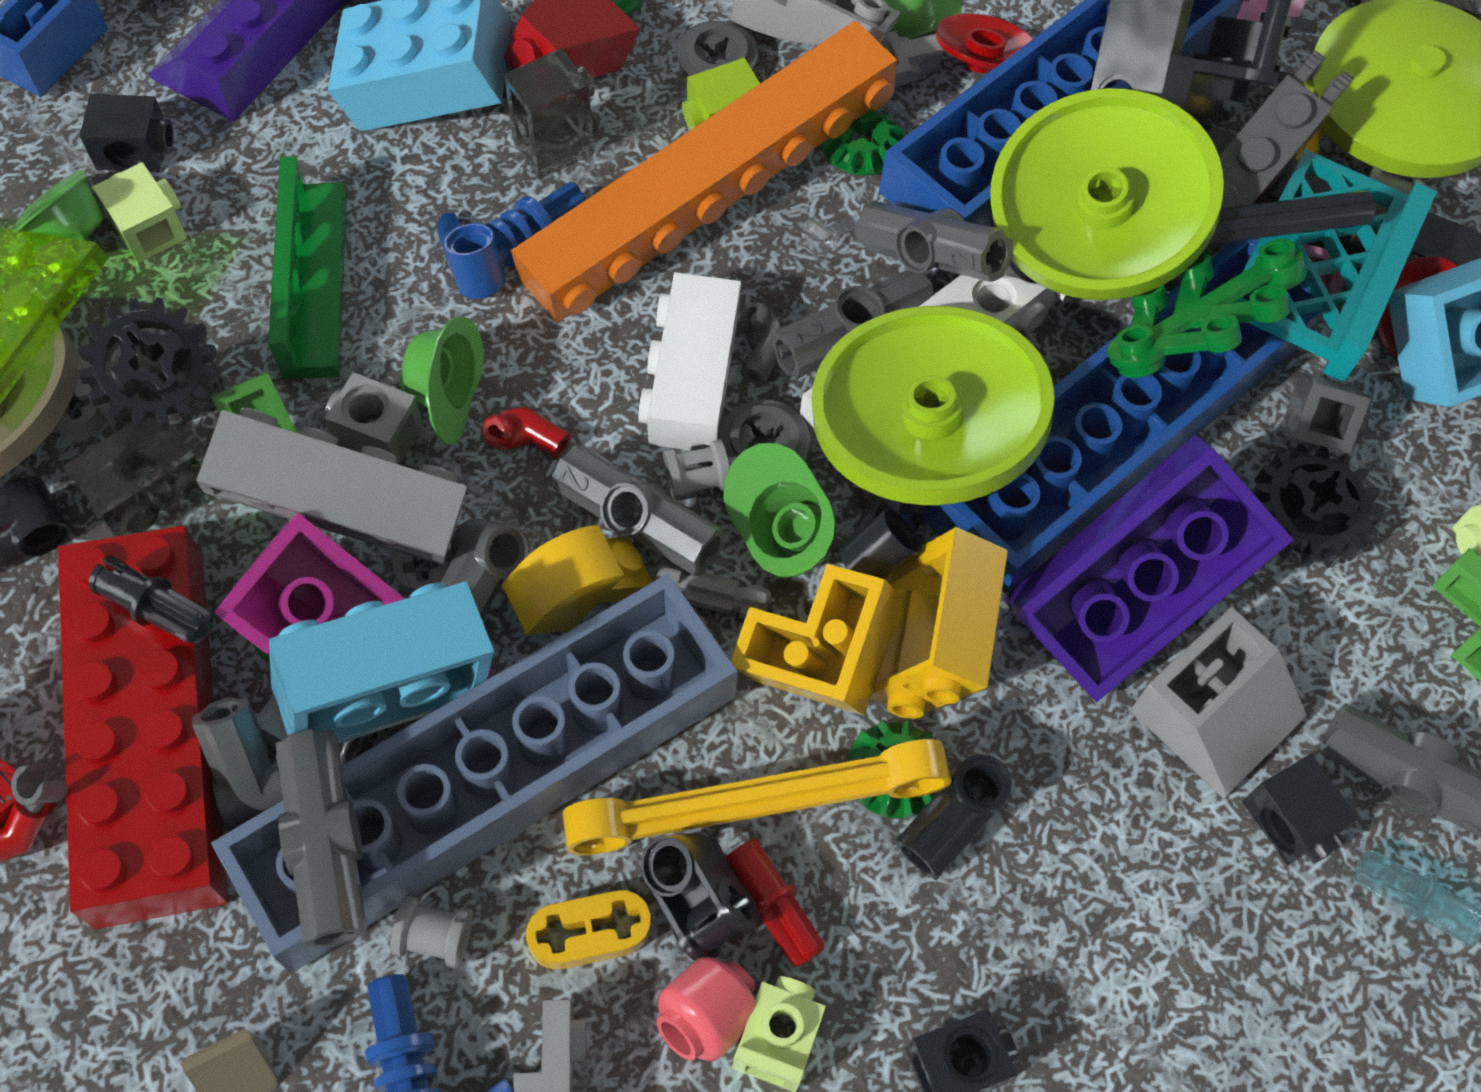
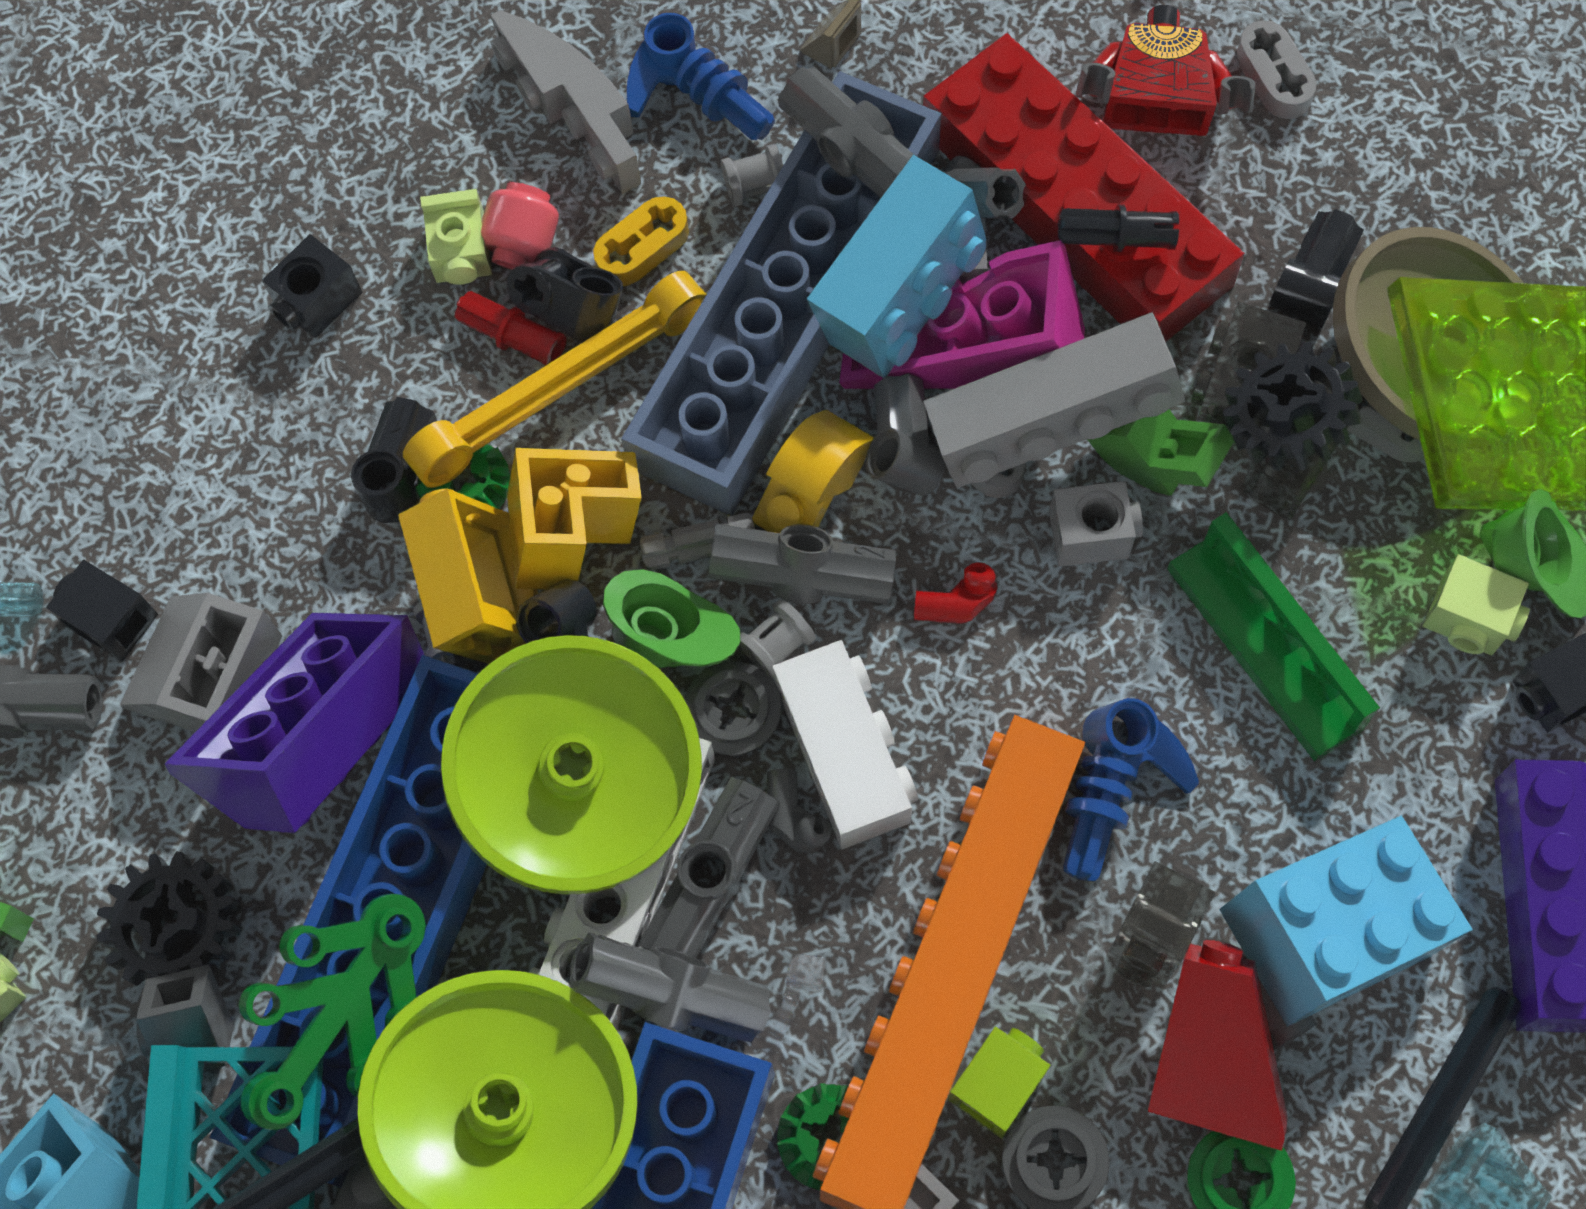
camera: 160 degrees right, 5 degrees up
(444, 373) = (1059, 587): bright green piece -> none

